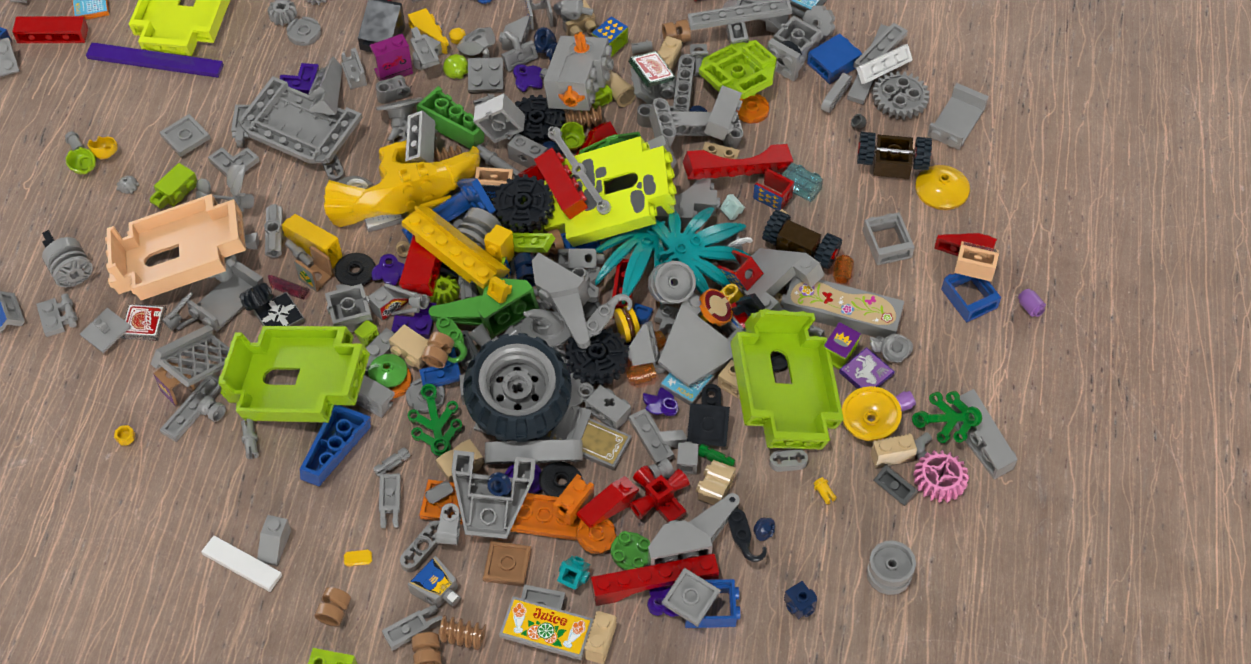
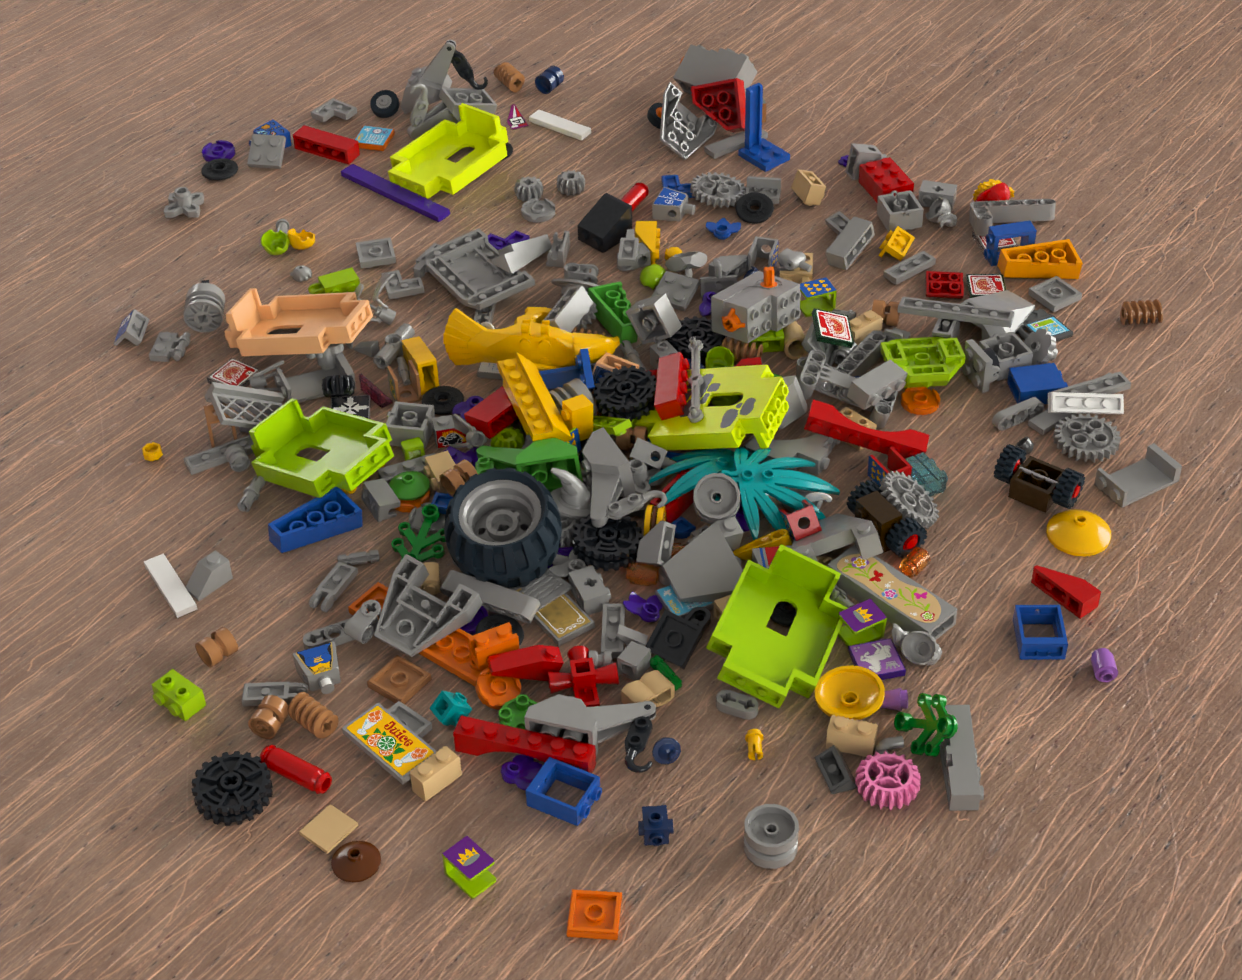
camera: 30 degrees right, 15 degrees down
(105, 330) = (198, 370): light grey piece -> none
(356, 558) = (271, 622): yellow piece -> none
(392, 57) = (594, 246): magenta panel -> none
(439, 492) = (375, 594): light grey piece -> none
(498, 289) = (544, 442): yellow tile -> none
(499, 484) = (430, 602): dark blue hat -> none
(690, 597) = (542, 771): light grey tile -> none
(716, 307) = (749, 538): tile -> none
(732, 207) = (837, 471): light aqua tile -> none
(748, 304) = (785, 540): black plate -> none
(809, 213) = (909, 498): none -> light grey gear
(890, 253) = (978, 566): light grey window -> none
(976, 261) = (1057, 597): light nougat slope -> none

